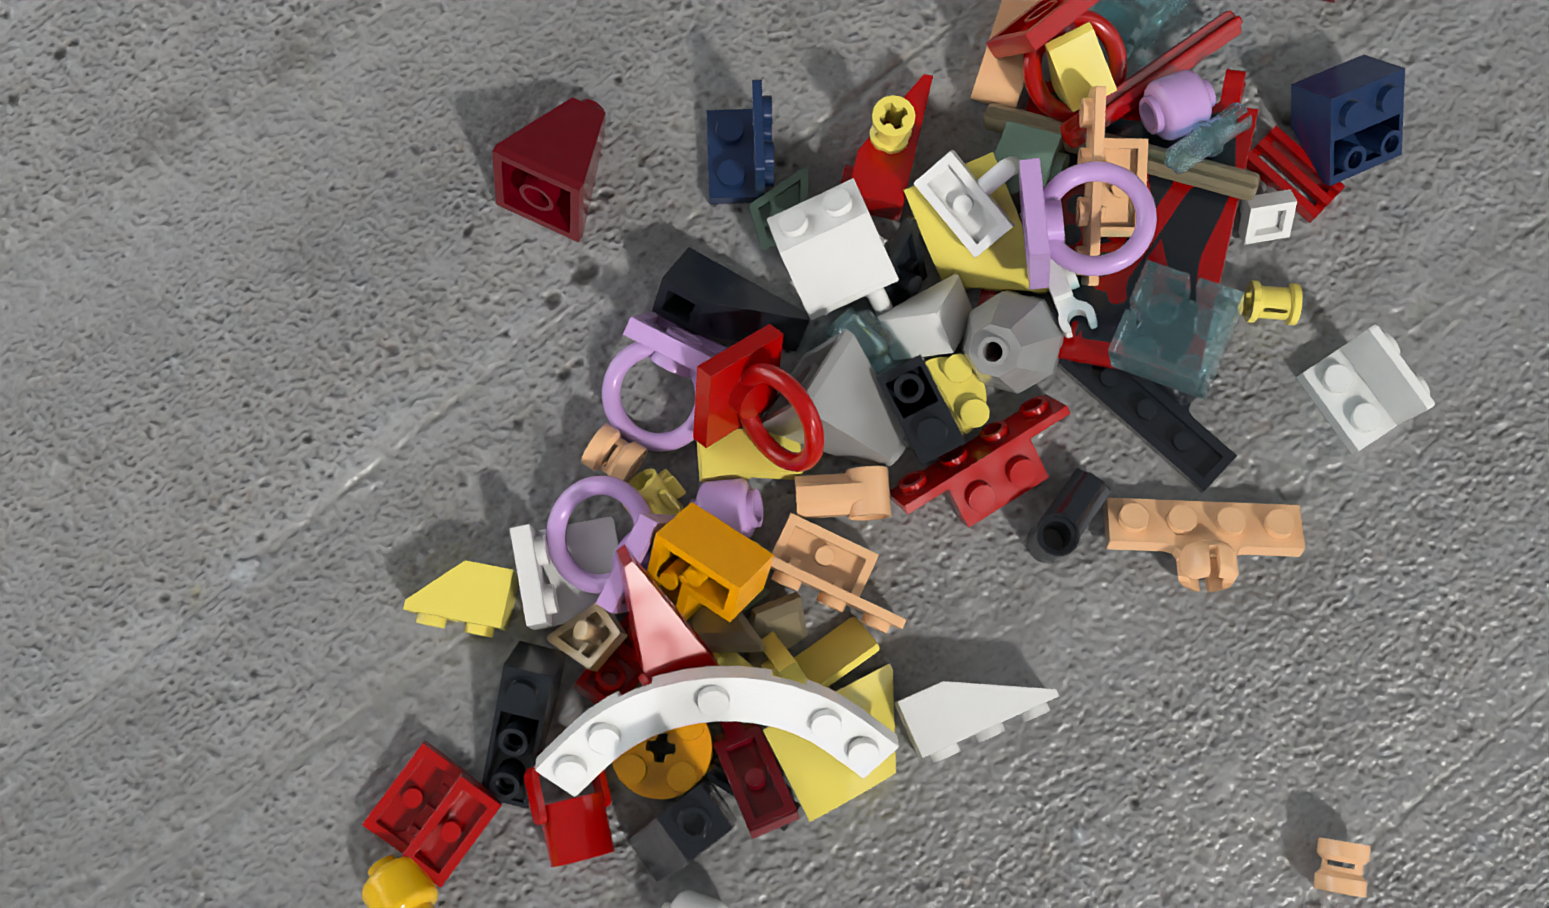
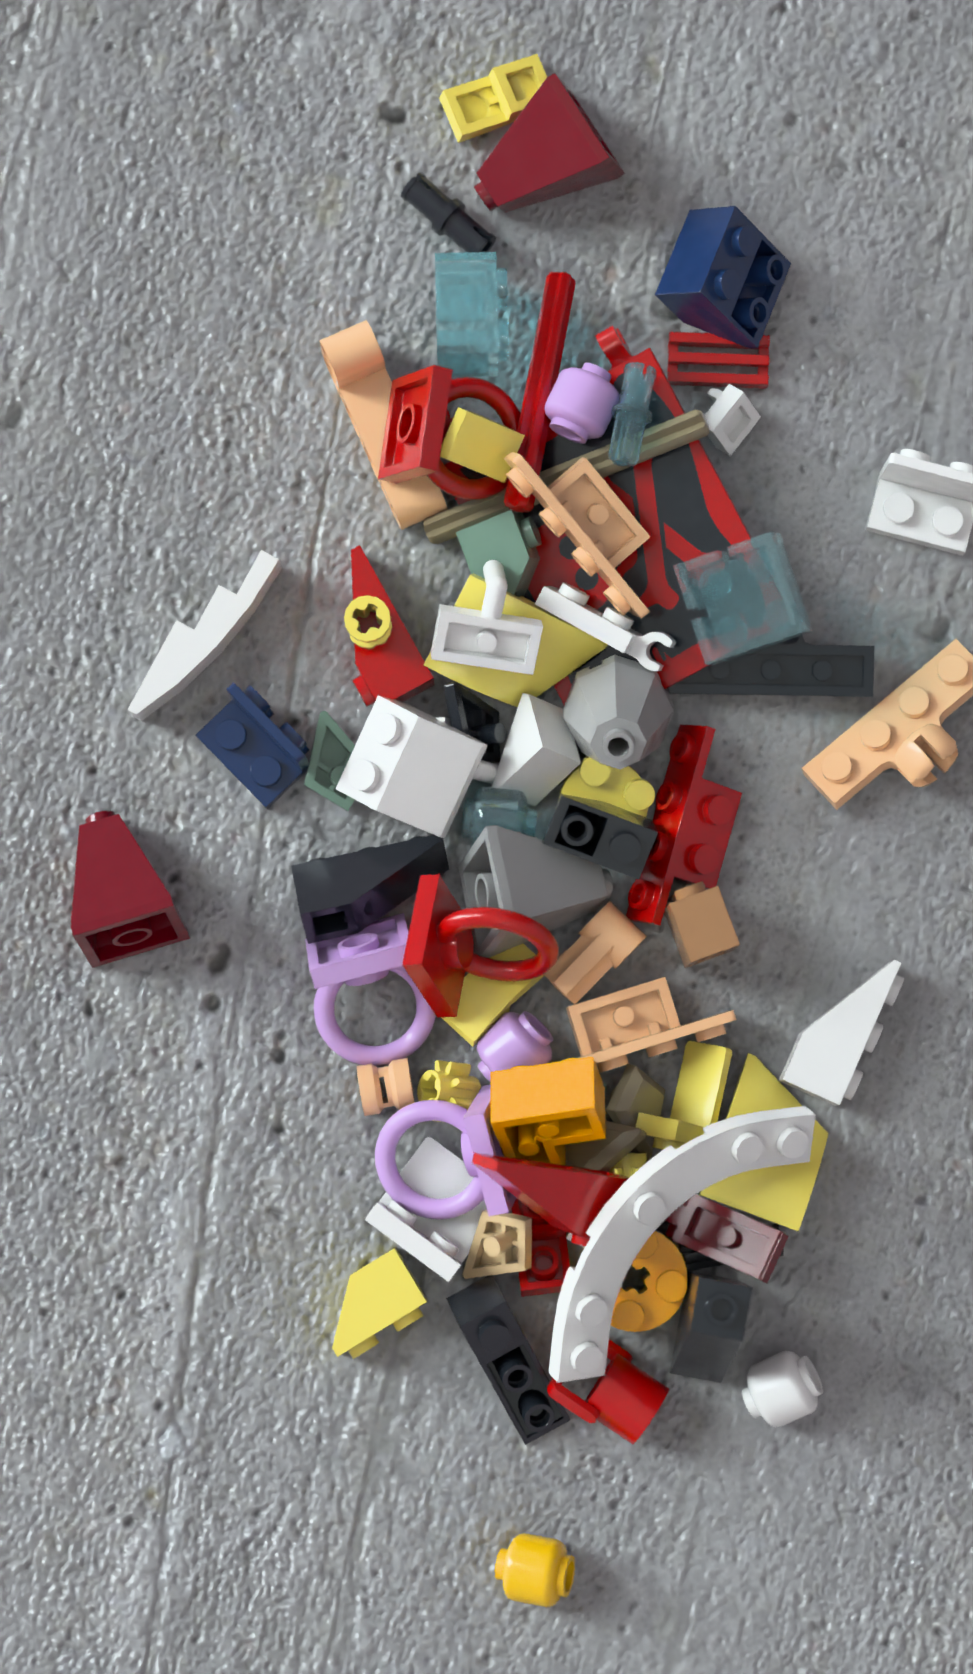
camera: 40 degrees left, 5 degrees up
(433, 812) = (502, 1488): red slope -> none
(753, 53) = (192, 650): none -> white slope
(937, 538) = (700, 924): none -> medium nougat brick
(1045, 226) = (567, 606): lavender tile -> none
(1069, 515) = (784, 808): black piece -> none
(1272, 302) = (794, 488): light yellow bush -> none

